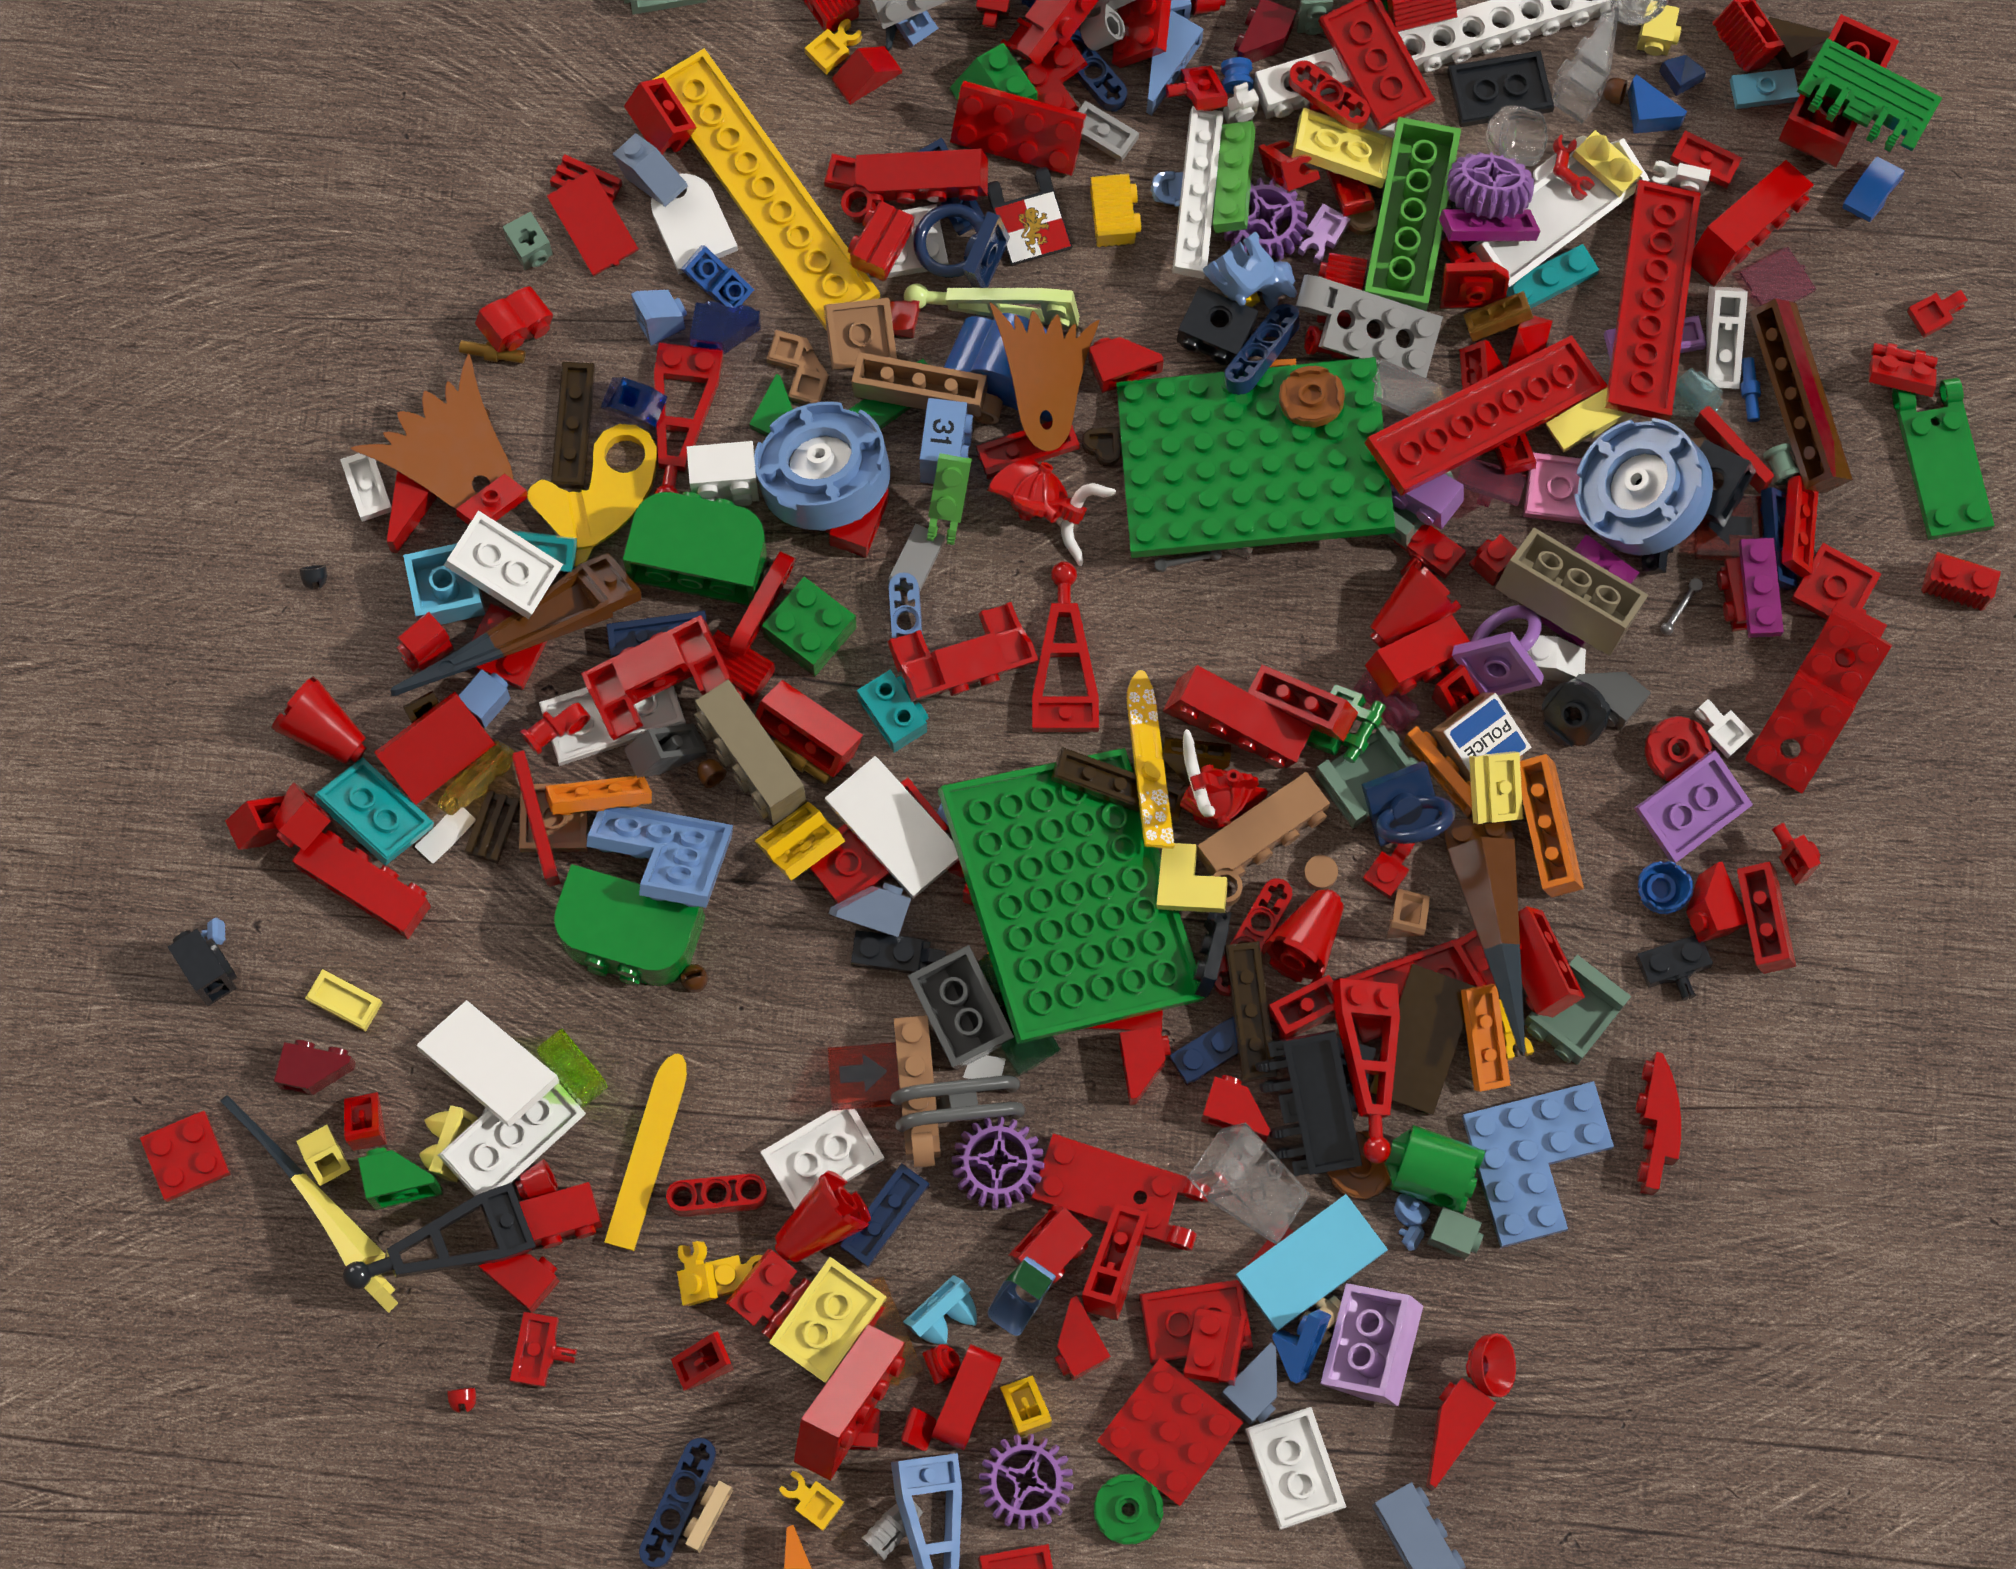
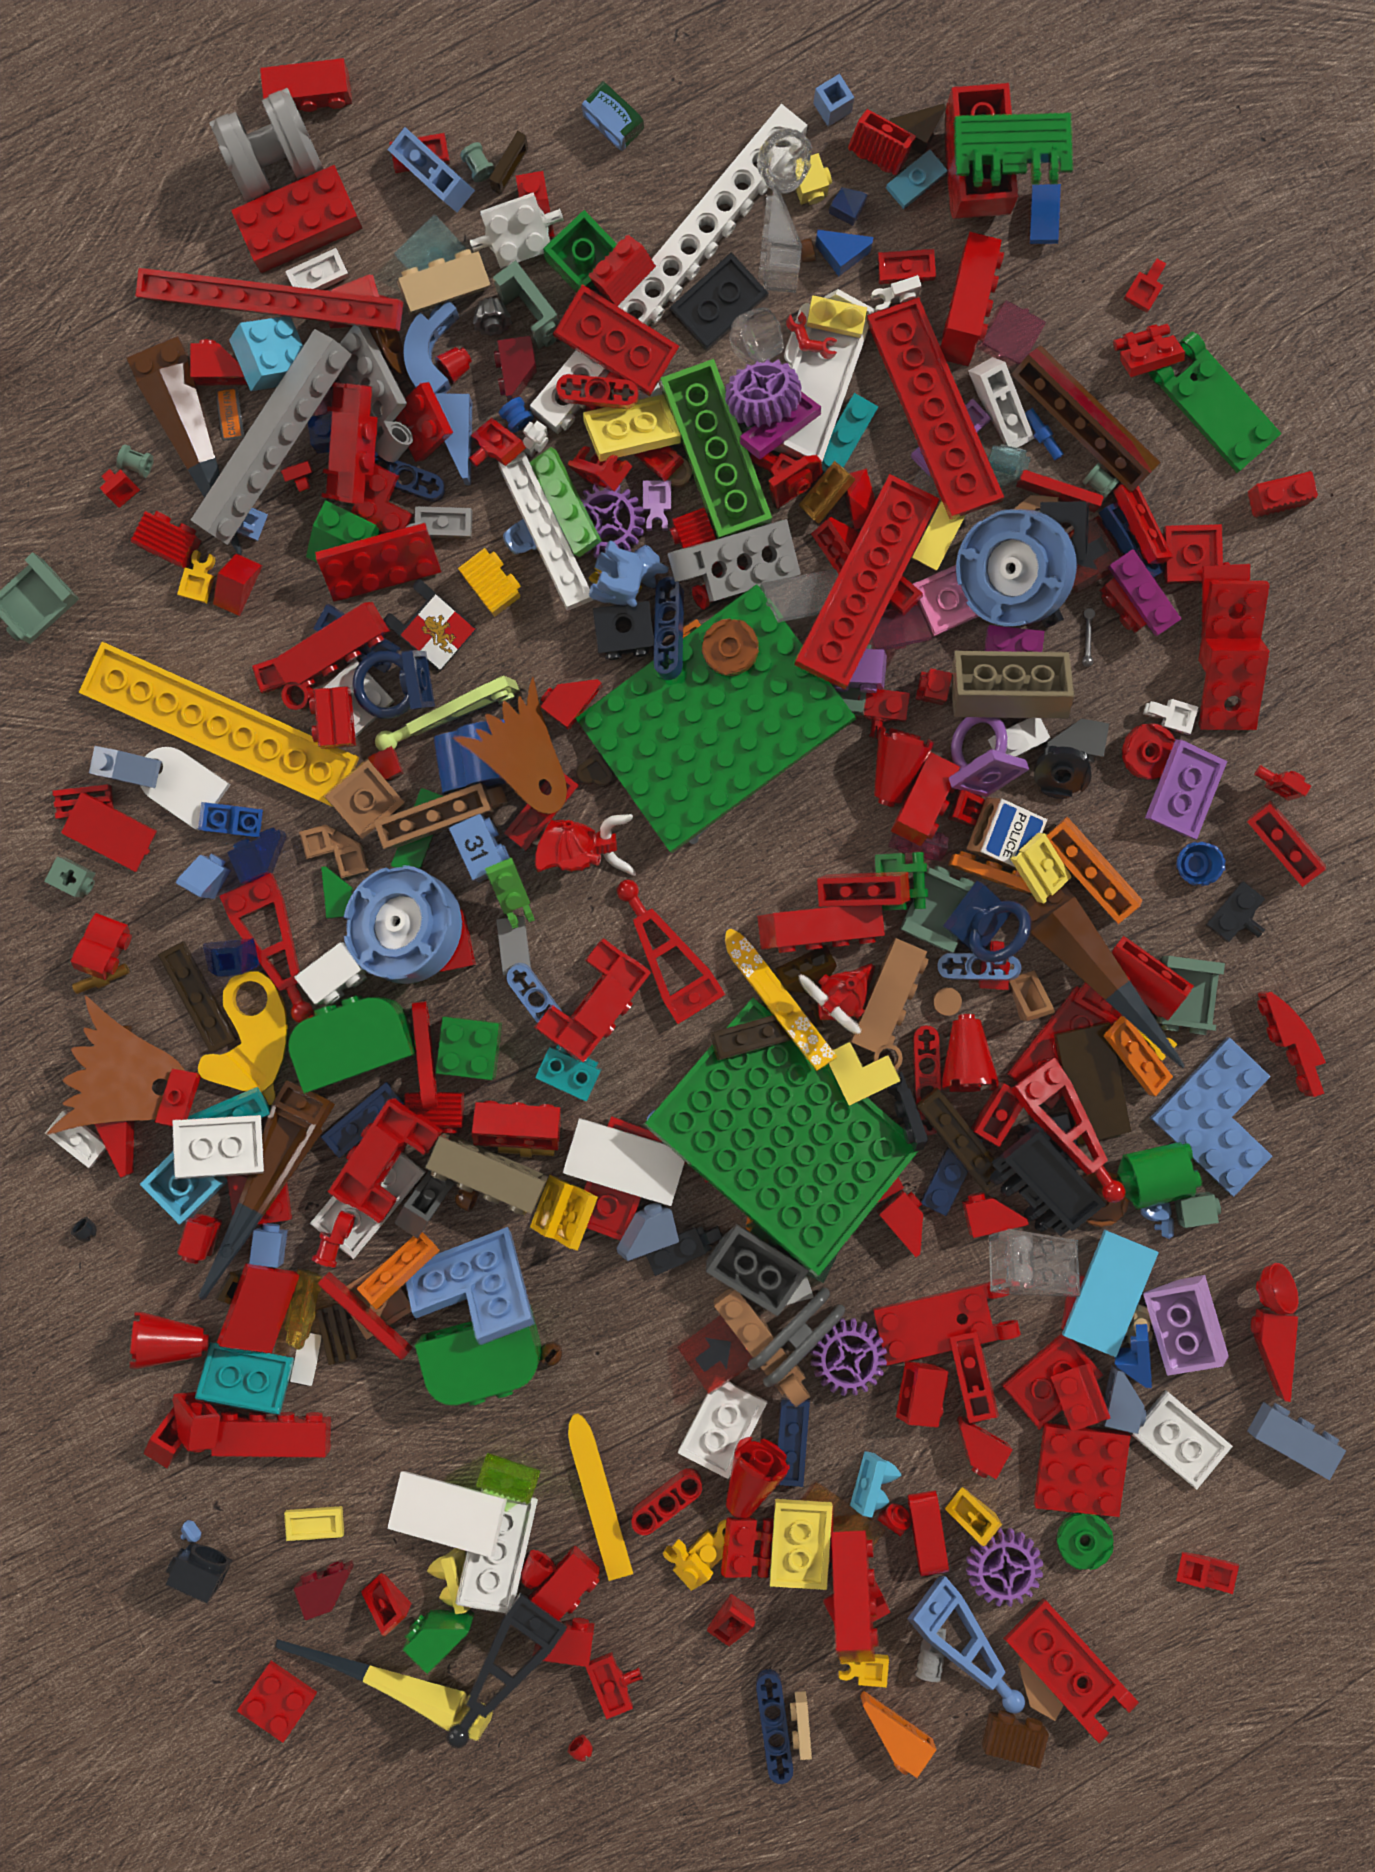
camera: 30 degrees left, 15 degrees up
(323, 1155) = (373, 1648): light yellow brick -> none
(660, 115) = (104, 718): red brick -> none
(918, 1430) = (907, 1575): red slope -> none
(1010, 1311) = (926, 1447): medium blue piece -> none
(1382, 864) = (957, 974): none -> medium blue beam
(1714, 906) = (1244, 855): red slope -> none

